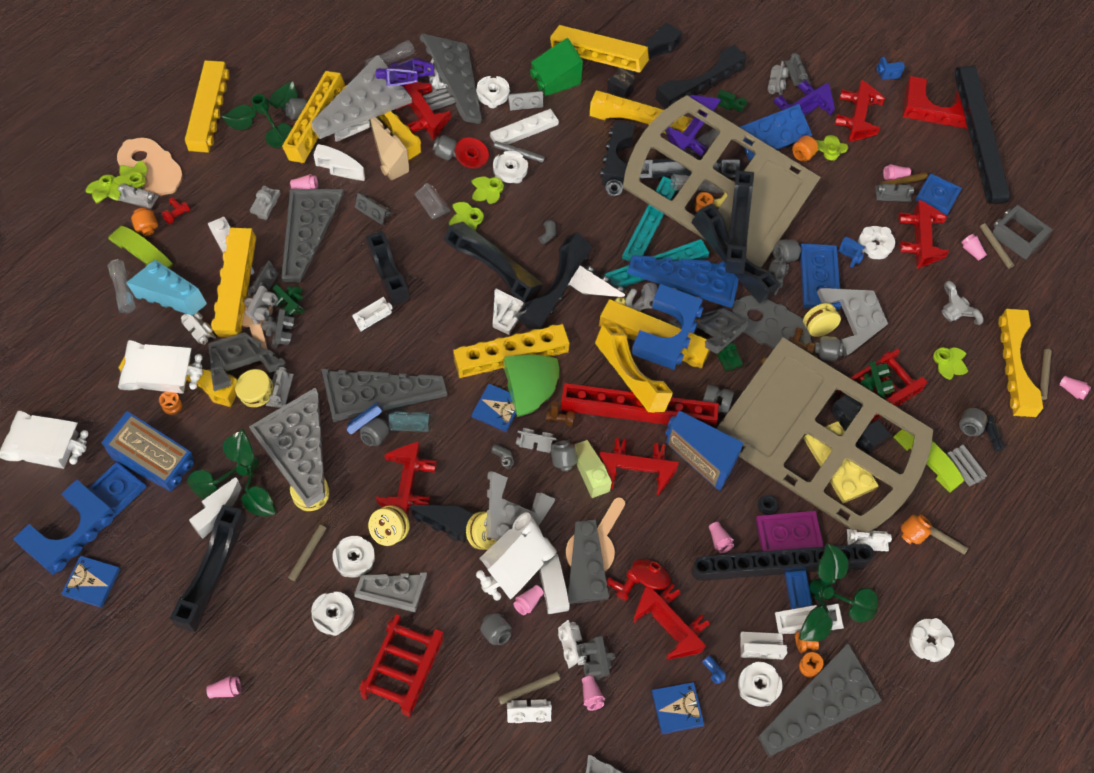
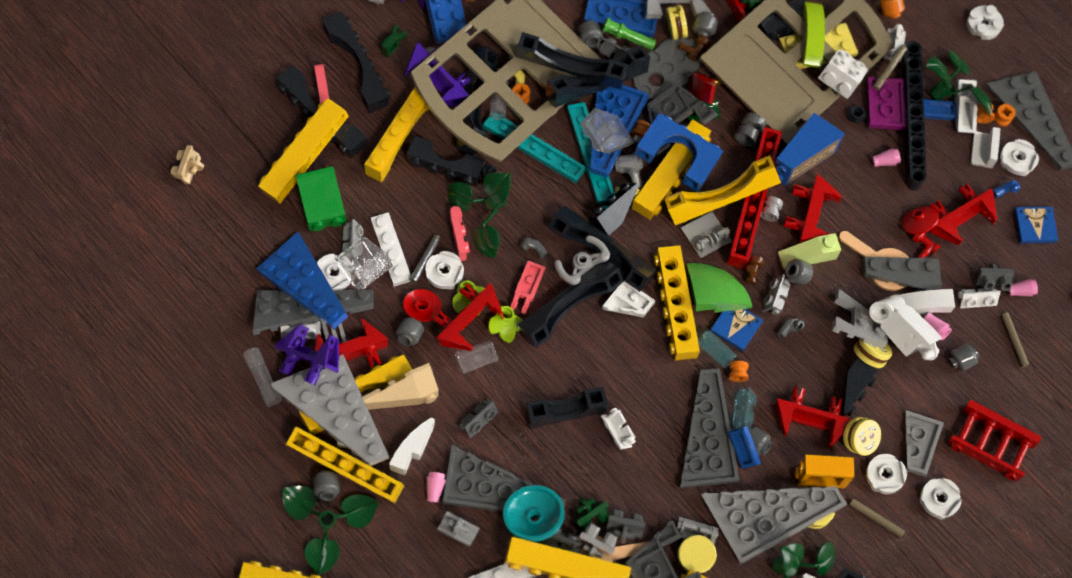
camera: 85 degrees left, 5 degrees up
(278, 247) = (532, 503): none -> teal dish
(345, 490) = (825, 471): none -> light orange window
(446, 410) = (738, 371): none -> orange wheel
(469, 391) = (716, 349): none -> clear light blue hinge
(480, 62) = (300, 277): none -> blue wing
(481, 191) = (450, 335): none -> red hose
(501, 102) = (363, 263): none -> clear slope
(505, 230) = (528, 285): none -> coral hinge
(519, 712) = (1037, 349): white hinge -> none
(533, 264) = (583, 262): none -> light grey piece
(548, 171) = (458, 233): none -> coral hinge
(583, 191) = (497, 187): none -> dark green plant
(591, 370) = (706, 234): none -> light grey hinge
(632, 427) = (772, 206): none -> light grey wheel
(674, 263) = (606, 131): none -> clear slope
(678, 57) = (321, 82): none -> coral beam
(750, 345) = (702, 87): none -> red slope
(796, 273) = (621, 31): none -> bright green pin
(810, 479) = (843, 73): none -> white bracket
(831, 528) = (881, 80): none -> dark tan bar
(846, 443) = (814, 35): none -> lime slope

